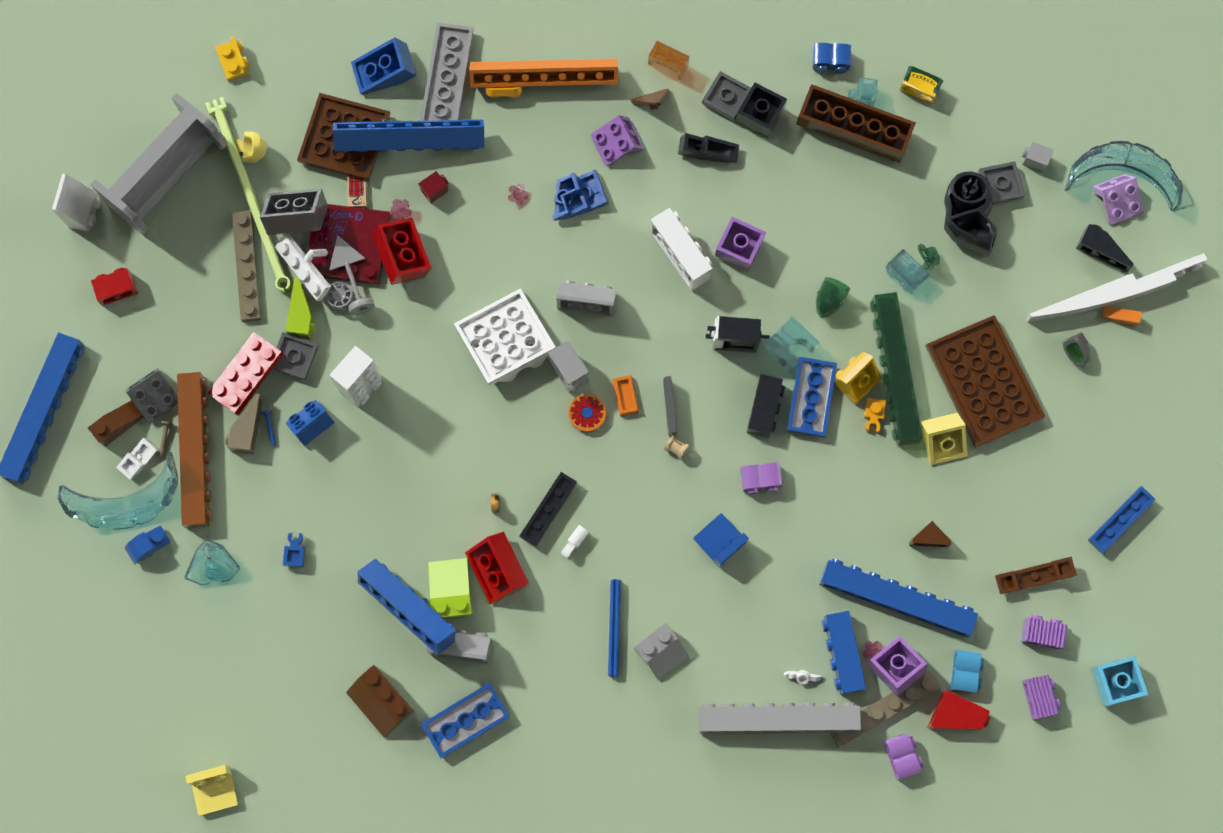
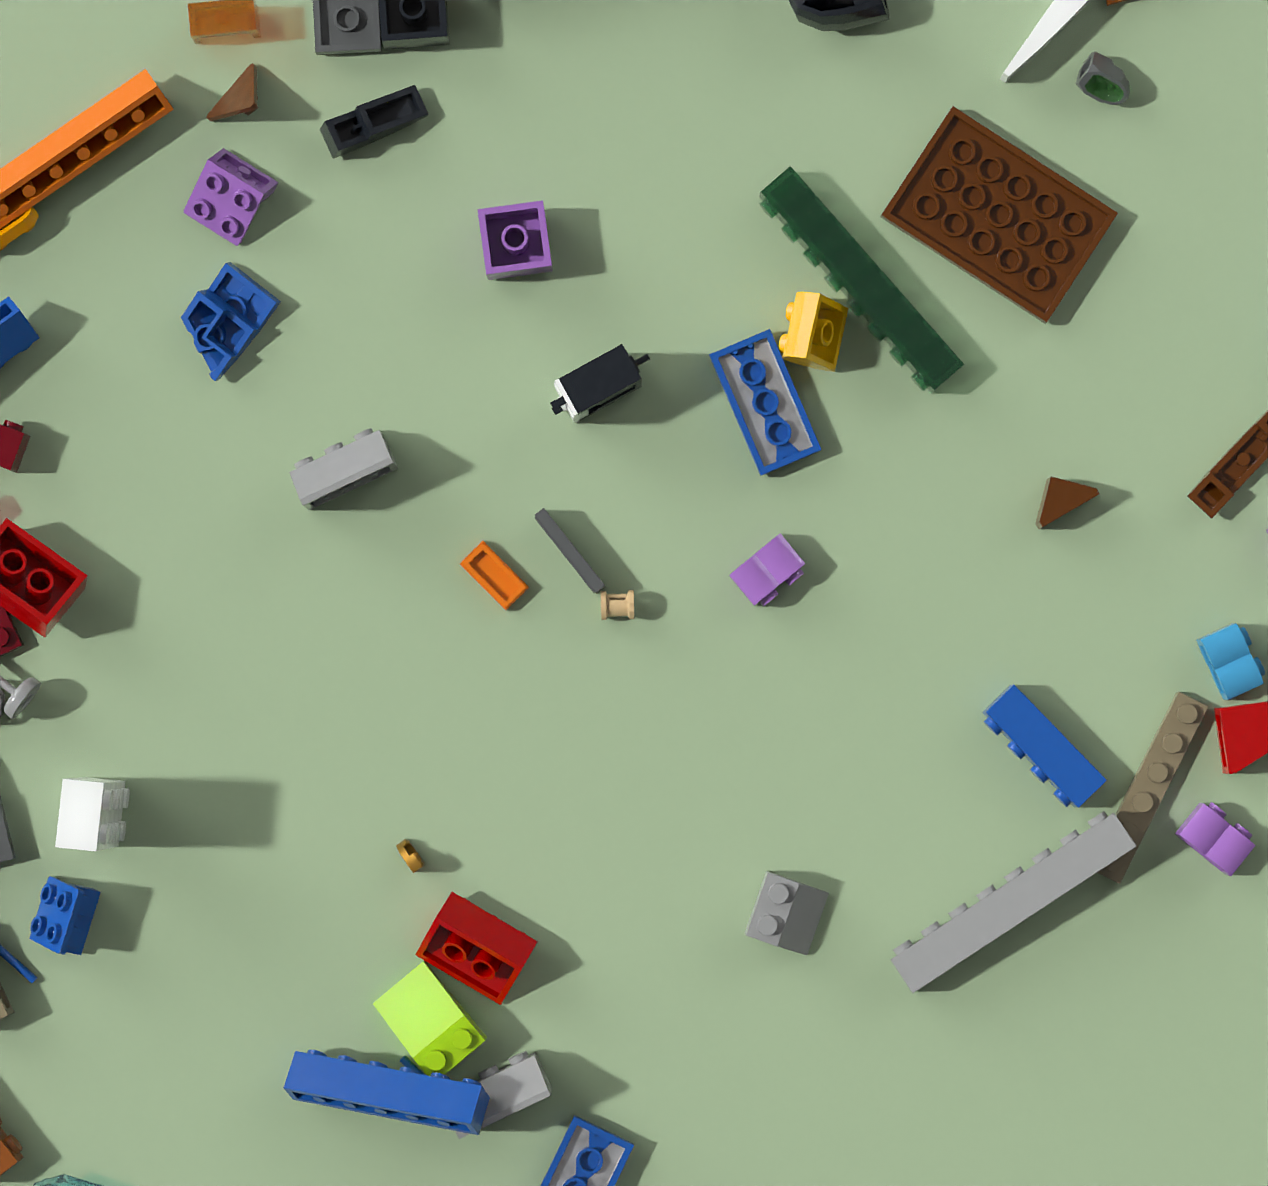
camera: 30 degrees left, 10 degrees up
(294, 553) = (174, 1118): blue plate -> none
(504, 338) = (261, 603): white piece -> none
(518, 194) = (136, 375): clear pink plant -> none
(548, 509) = (493, 816): black plate -> none
(568, 366) = (385, 591): light grey piece -> none
(574, 541) = (561, 836): white bar -> none
(587, 413) = (456, 638): tile -> none
(614, 628) = (698, 922): blue axle -> none
(681, 249) = (433, 306): white brick -> none
(720, 539) = (767, 699): blue bracket -> none
(765, 406) = (707, 460): black brick -> none
(788, 335) = (669, 351): clear light blue piece -> none
(802, 676) = (1006, 817): white piece -> none
(831, 297) = (698, 236): clear green helmet -> none
(872, 649) = (1082, 716): clear pink plant -> none
(874, 411) = (867, 363): light orange plate -> none
(898, 666) = (1132, 717): medium lavender brick -> none
(899, 598) = (1071, 619): blue brick -> none
(907, 271) = (785, 122): clear light blue brick -> none
(931, 259) = (810, 76): clear green piece -> none
(944, 438) = (993, 340): light yellow slope -> none

